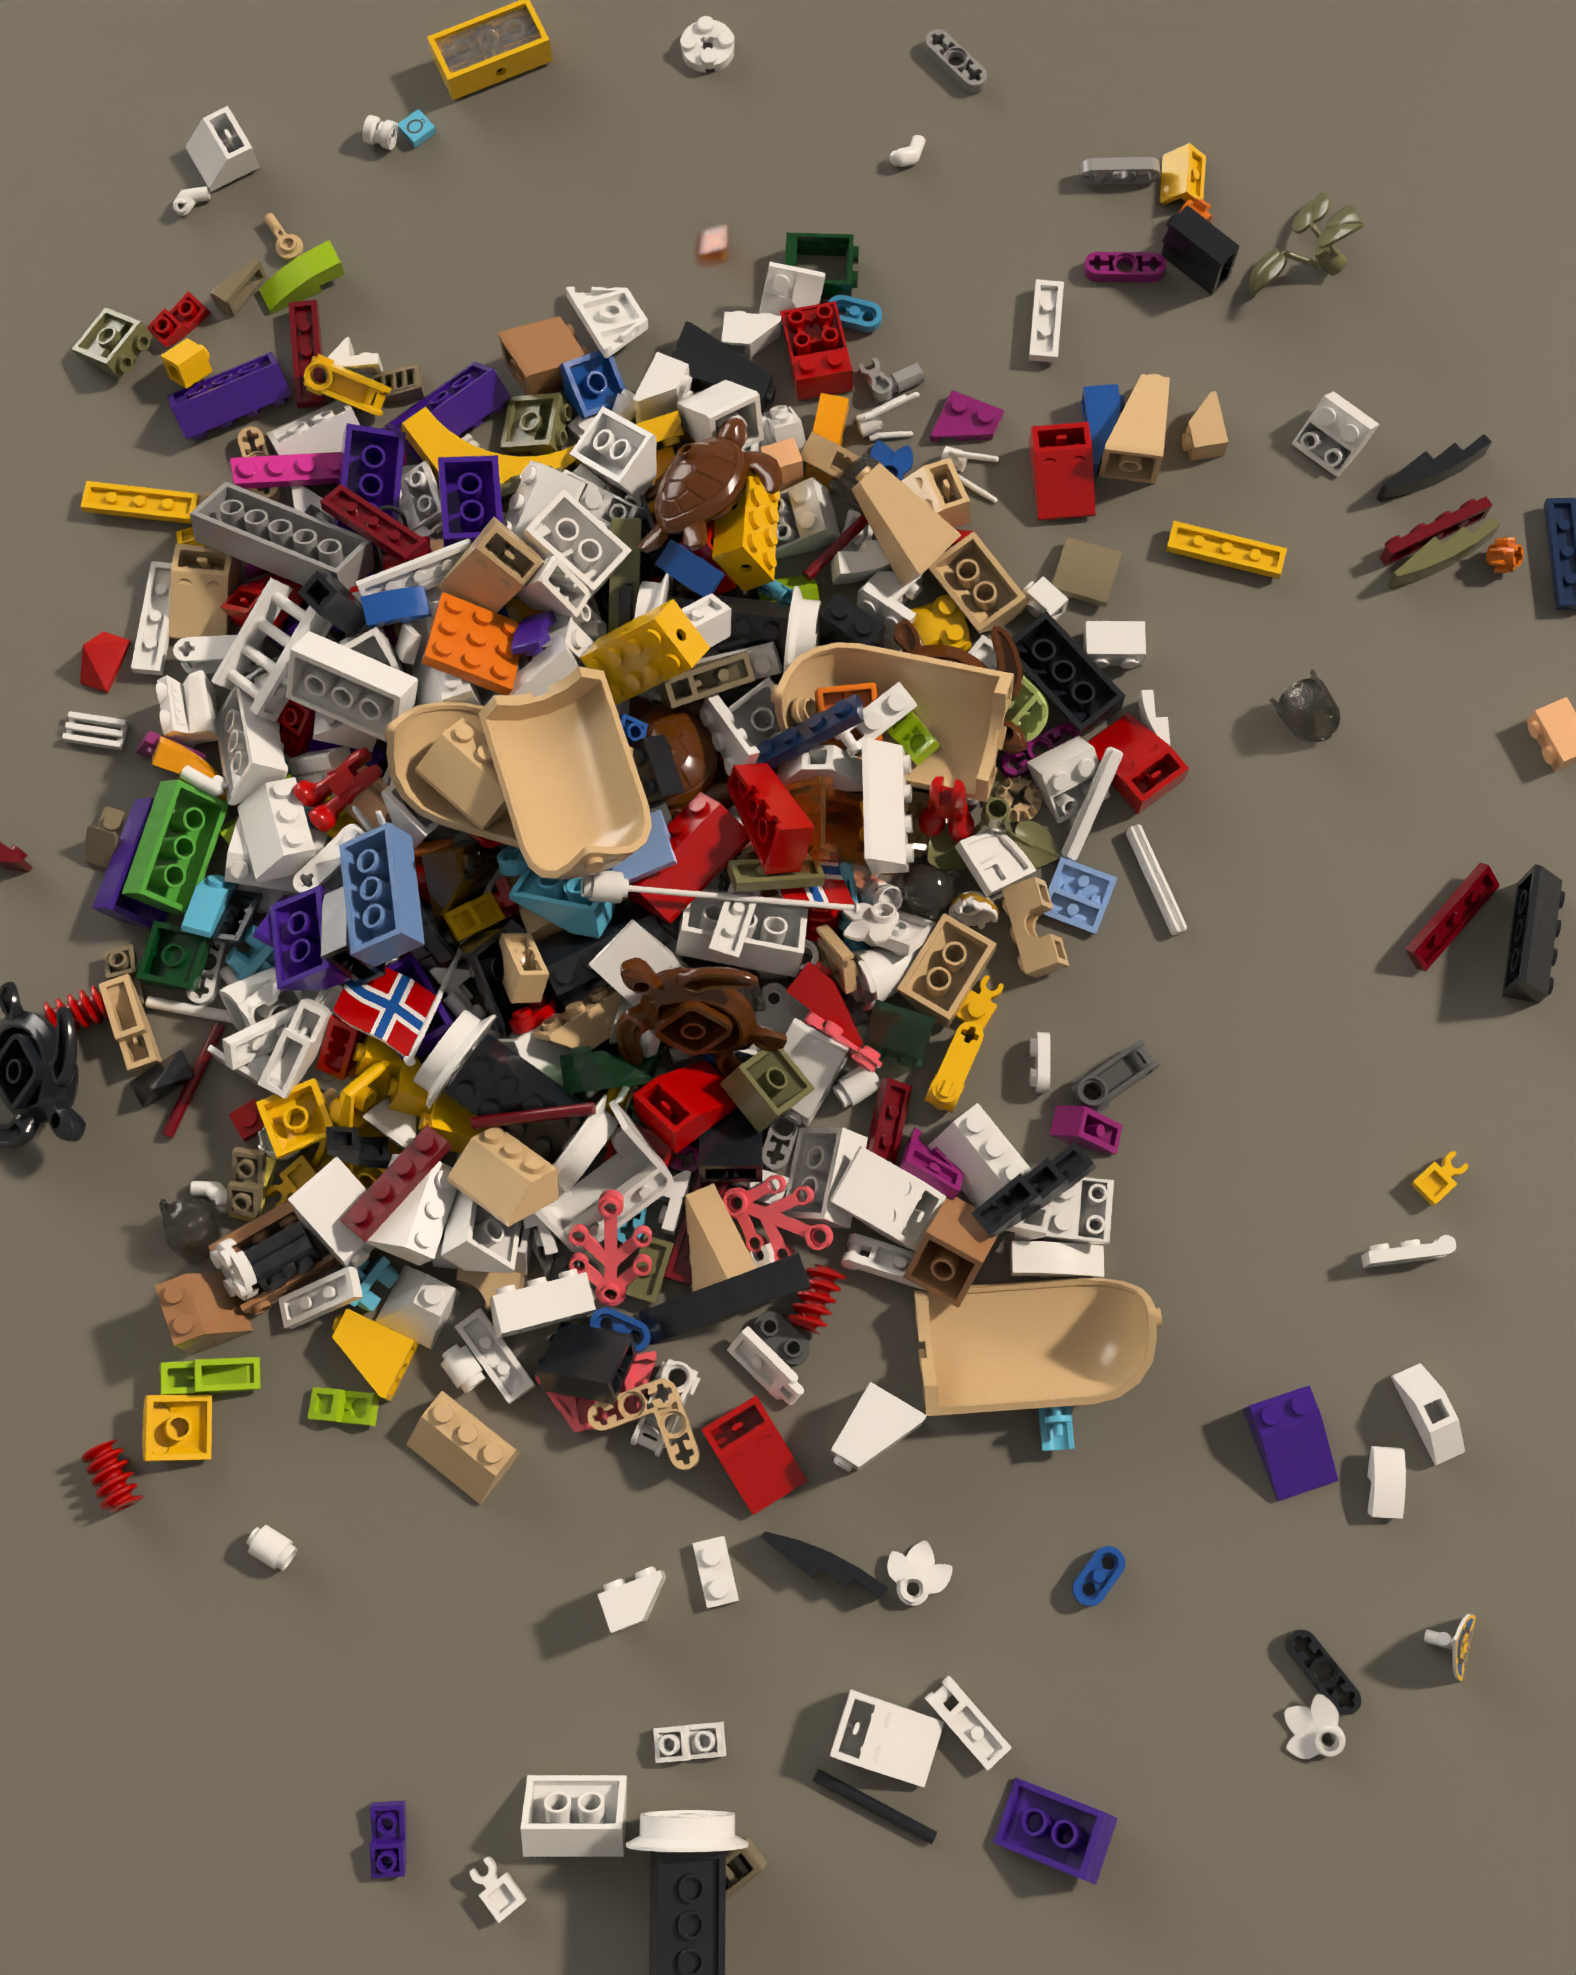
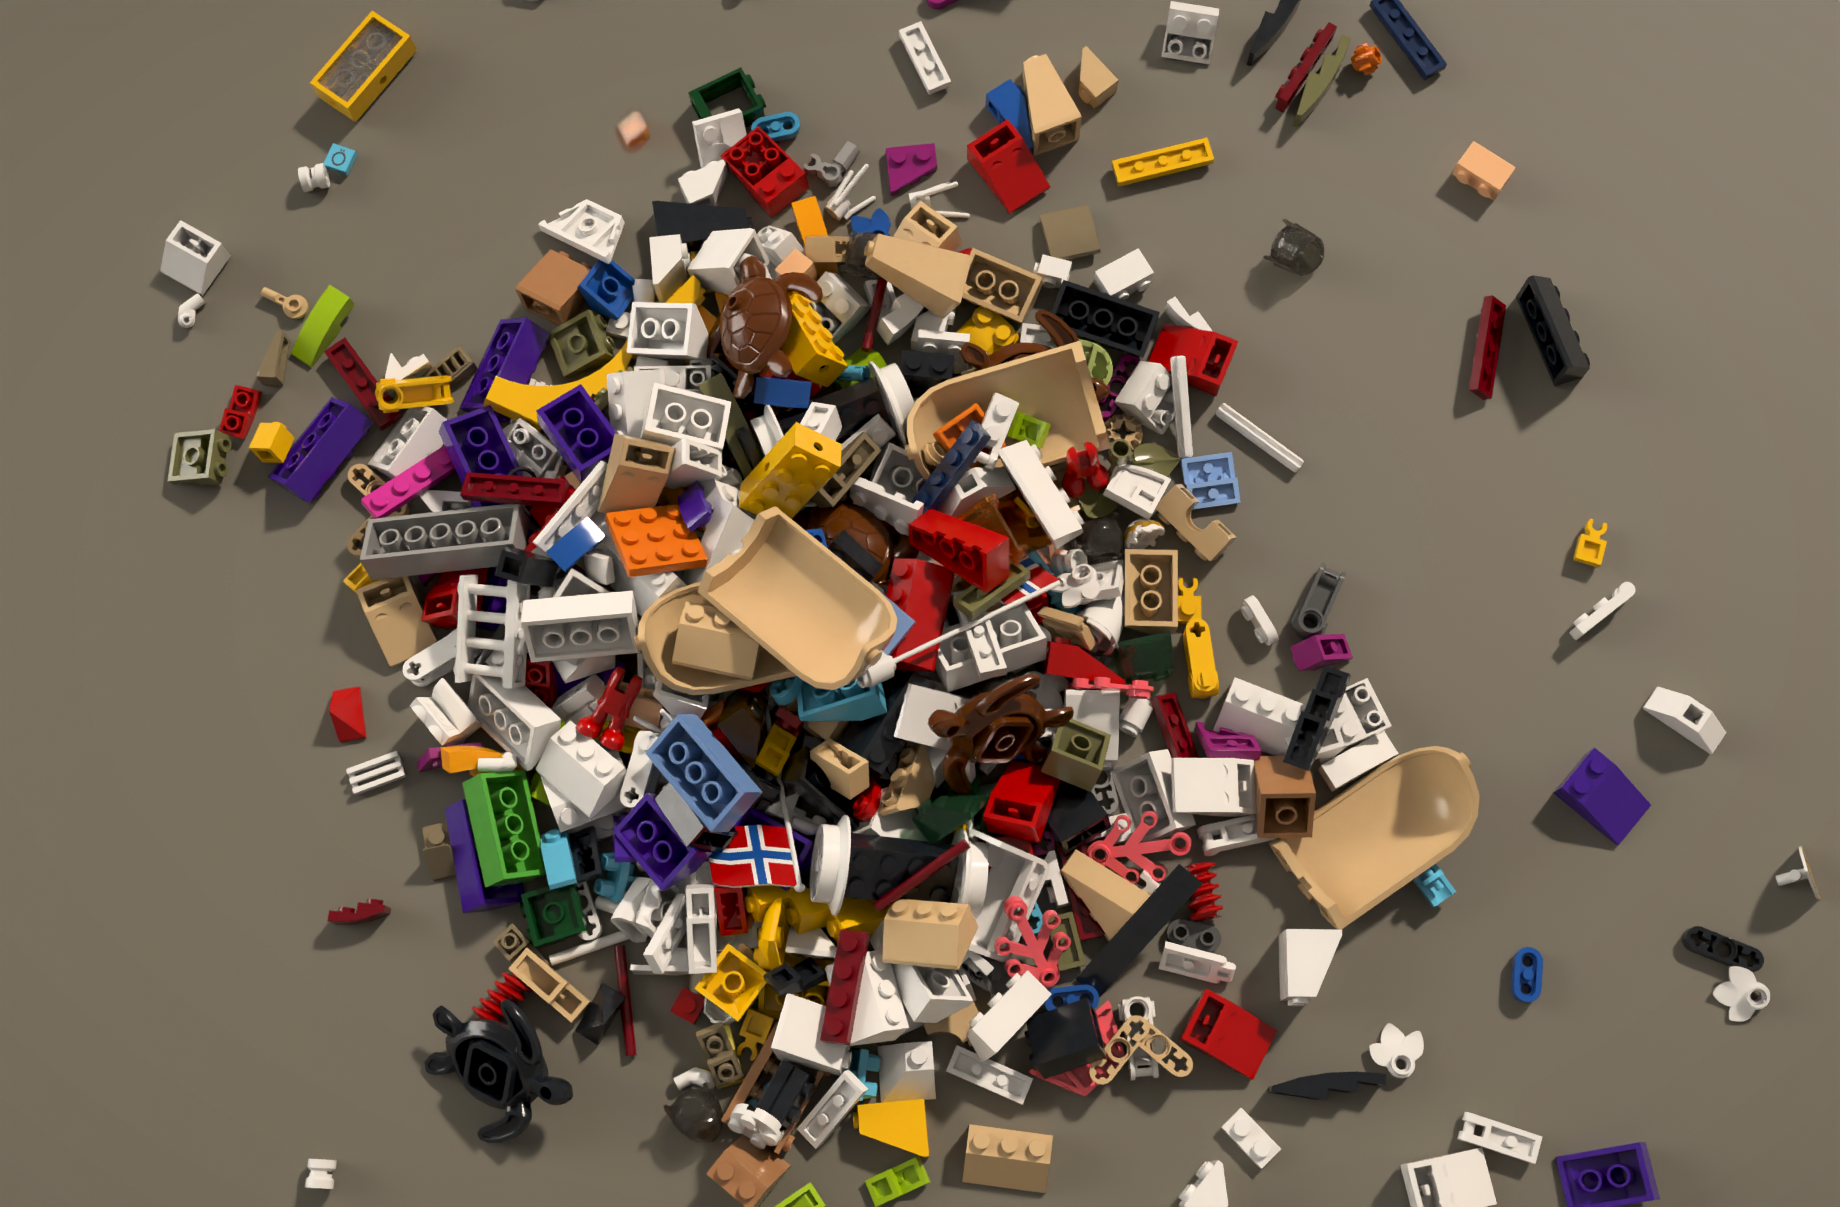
camera: 30 degrees left, 0 degrees up
(138, 502) = (301, 573): yellow plate -> none
(153, 628) = (371, 659): white plate -> none
(462, 1368) = (970, 1098): white brick -> none
(1388, 1482) = (1686, 783): white slope -> none

